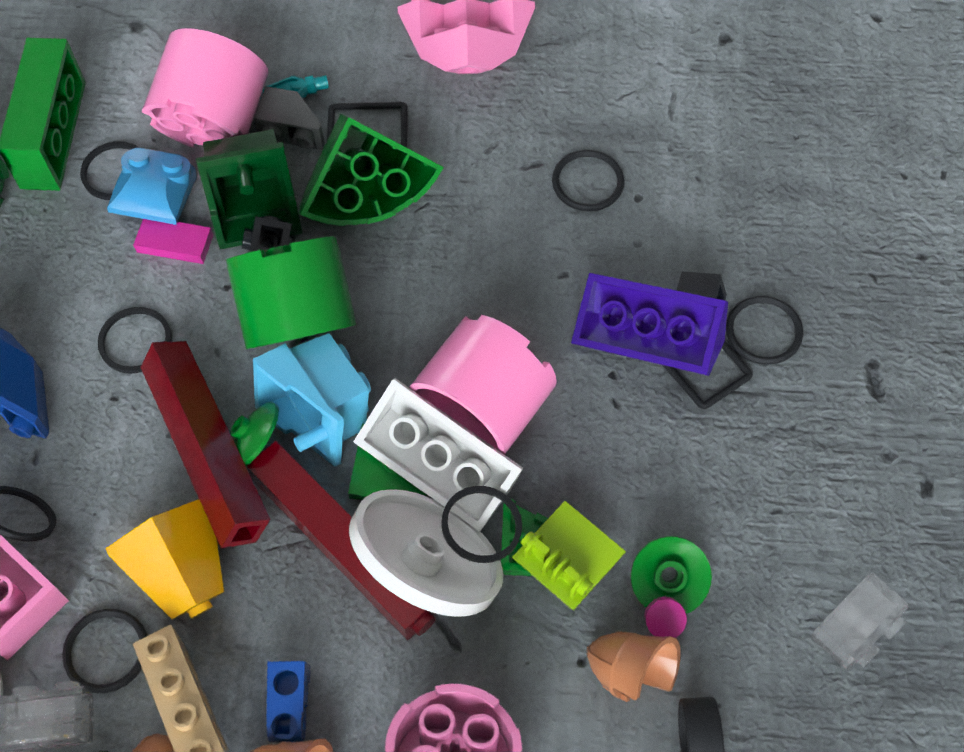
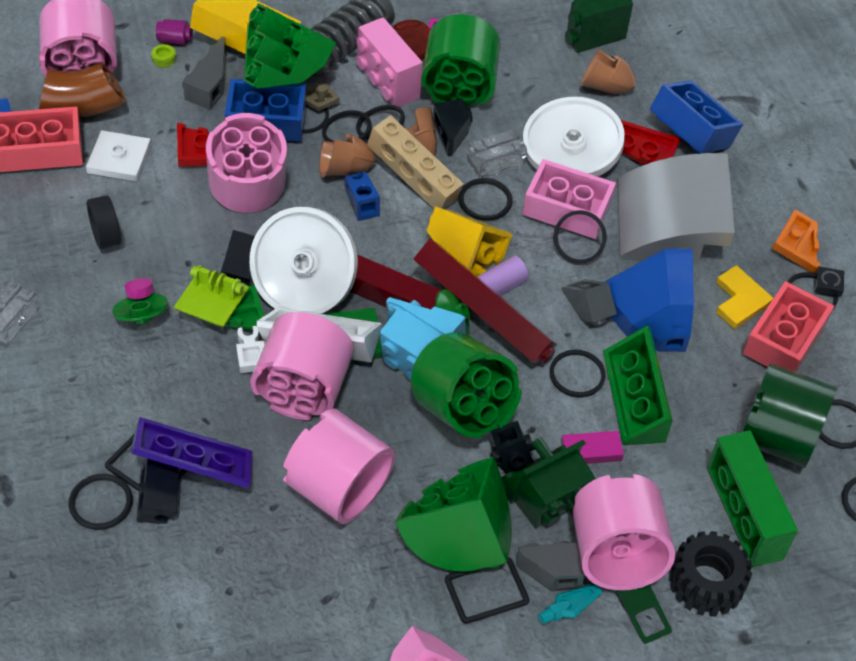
camera: 155 degrees right, 10 degrees down
(60, 423) = (591, 300): none -> dark grey slope
(75, 284) = (638, 389): none -> green slope
(83, 172) = (693, 480): black piece -> none
(118, 52) = (704, 593): none -> black tyre
(152, 185) = (628, 461): dark azure slope -> none
(155, 496) = (506, 275): none -> lavender brick
(470, 556) = (274, 269): black piece -> none
(481, 246) = (338, 466): none -> bright pink brick
(511, 624) = (238, 257): none -> black hinge
(538, 470) = (248, 350): none -> white plate
(588, 207) = (283, 618): black tyre -> none
(630, 659) = (156, 250): nougat helmet -> none

